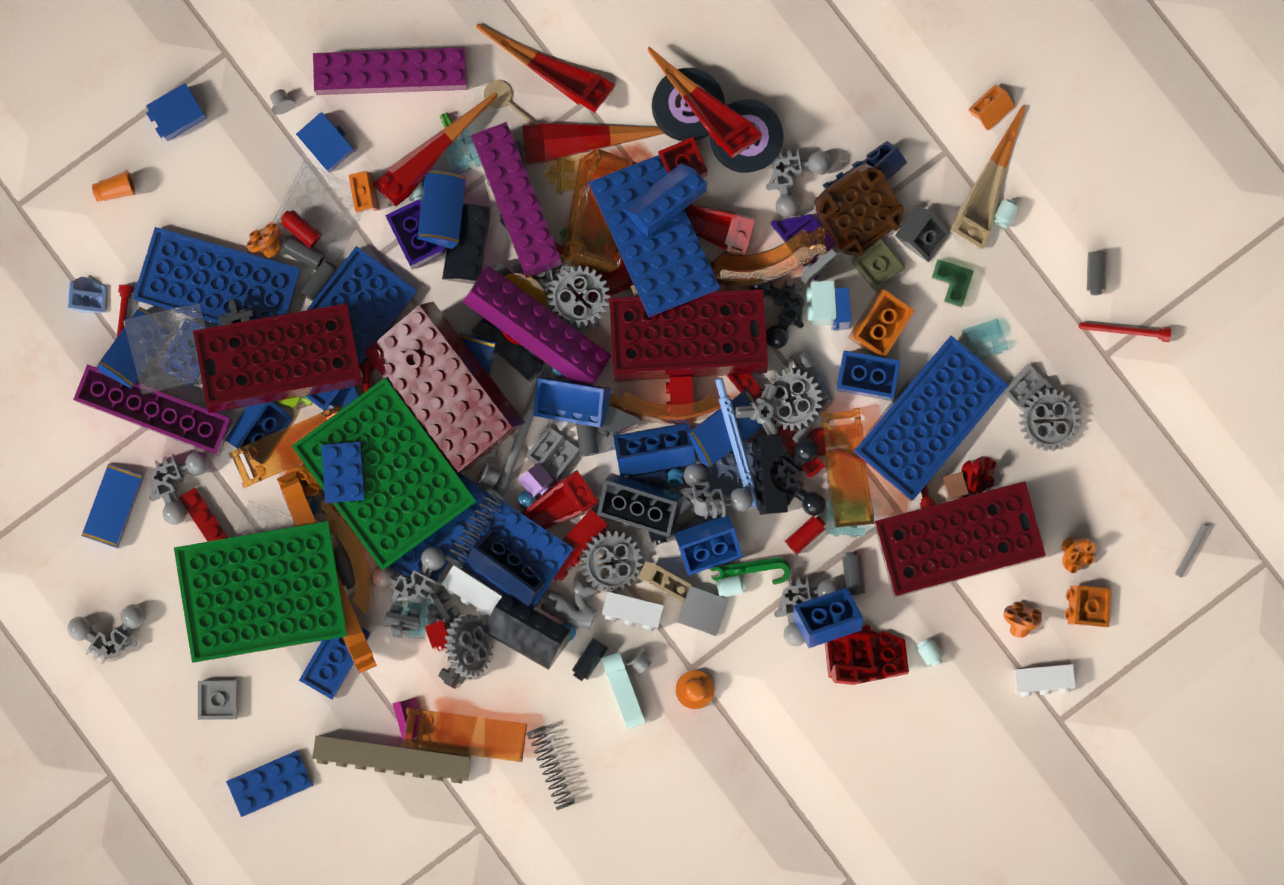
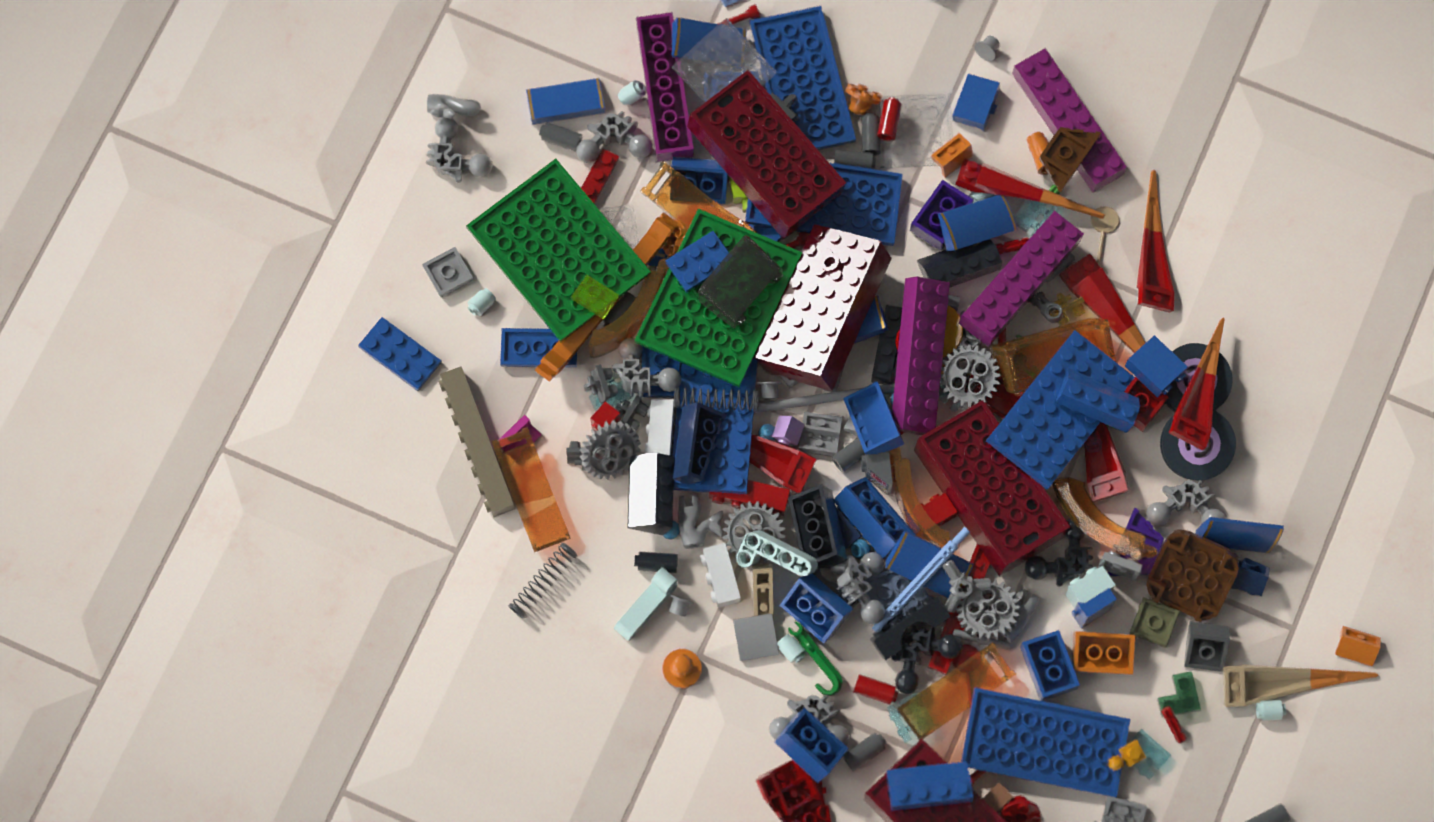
camera: 60 degrees right, 10 degrees down
(54, 619) = (446, 106): none -> light grey piece
(141, 442) = (632, 93): none -> light aqua brick
(146, 529) = (560, 136): none -> dark grey brick
(263, 685) = (481, 302): none -> light aqua brick
(325, 583) = (595, 296): none -> clear neon green plate
(385, 448) = (739, 281): none -> clear smoke windscreen
(407, 112) = (1037, 143): none -> orange plant
(425, 93) = (1066, 153): none -> reddish brown wing
(477, 187) = (1011, 246): none -> red axle
(552, 192) = (1046, 307): none -> dark grey connector
(648, 552) = (779, 556): none -> light aqua beam
(662, 131) = (1156, 367): none -> blue brick
(846, 149) = (1241, 534): none -> blue slope
(920, 538) = (929, 786): none -> blue slope
(978, 301) = (1173, 724): none -> red axle
(980, 352) = (1130, 754): none -> light orange plate

